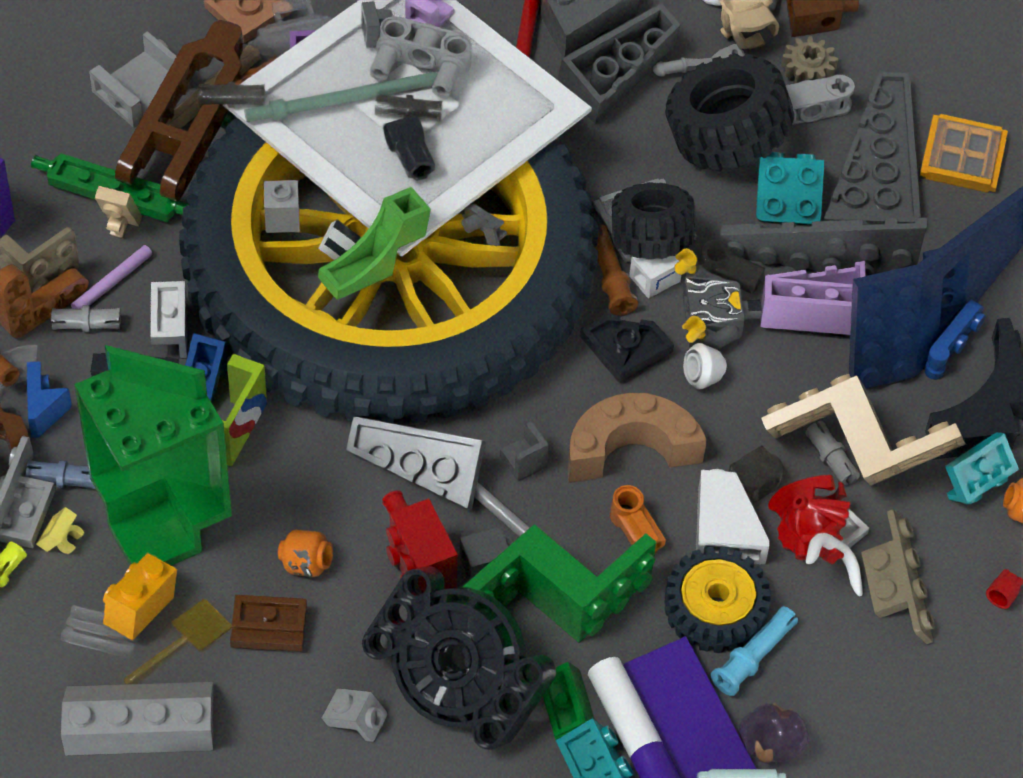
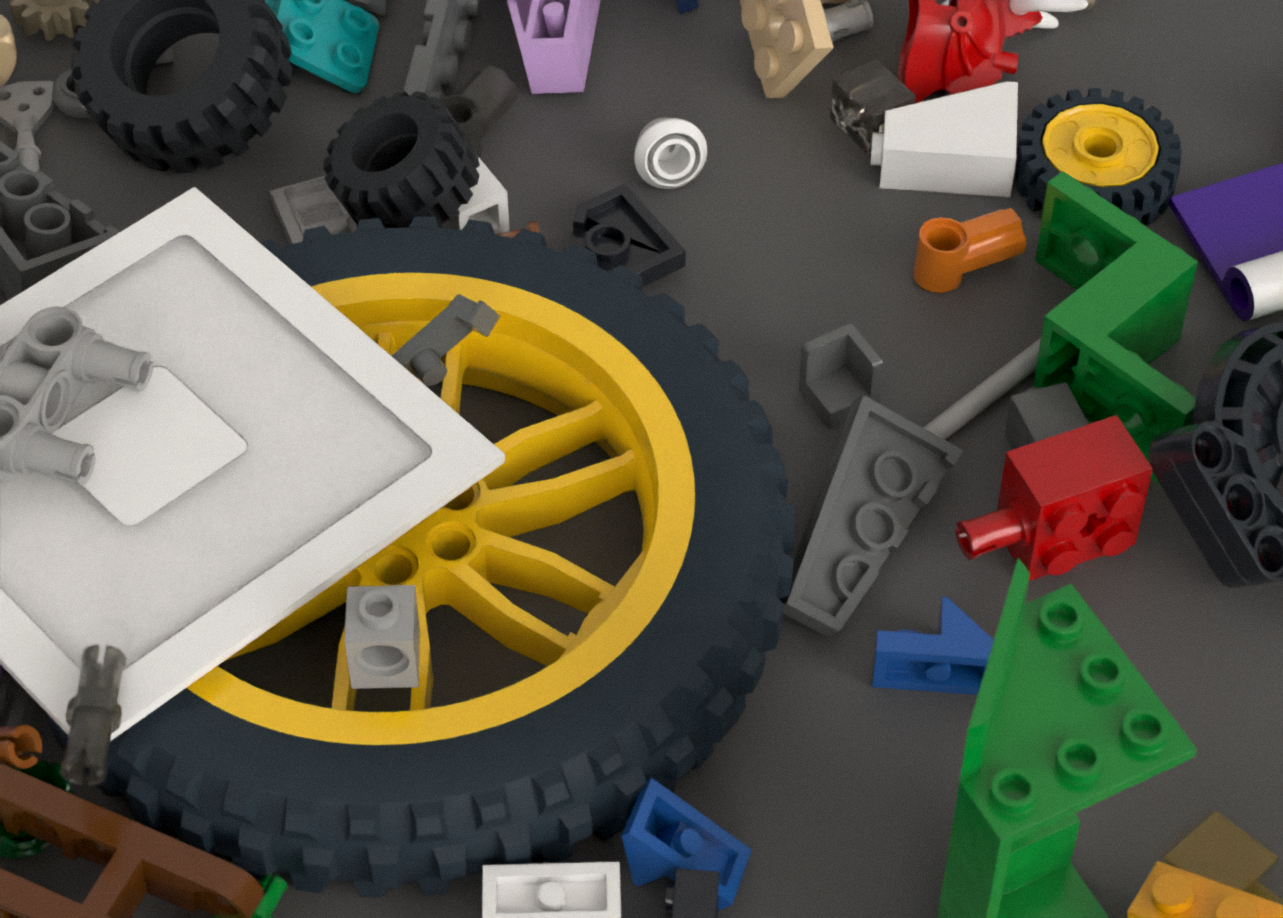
camera: 85 degrees left, 5 degrees down
(249, 395) = (792, 765): lime panel -> none
(268, 623) = (1229, 743): reddish brown plate -> none
(279, 108) = (143, 628): sand green bar -> none
(328, 497) = (934, 662): none -> blue slope
(338, 240) = (452, 568): tile -> none
(399, 222) = (502, 500): bright green arch -> none
(408, 107) = (171, 428): clear smoke pin -> none
(408, 141) = (253, 427): black piece -> none
(633, 420) = (790, 268): medium nougat brick -> none
(712, 304) = (555, 136): dark grey torso -> none
(745, 660) = (1202, 133): medium azure pin -> none

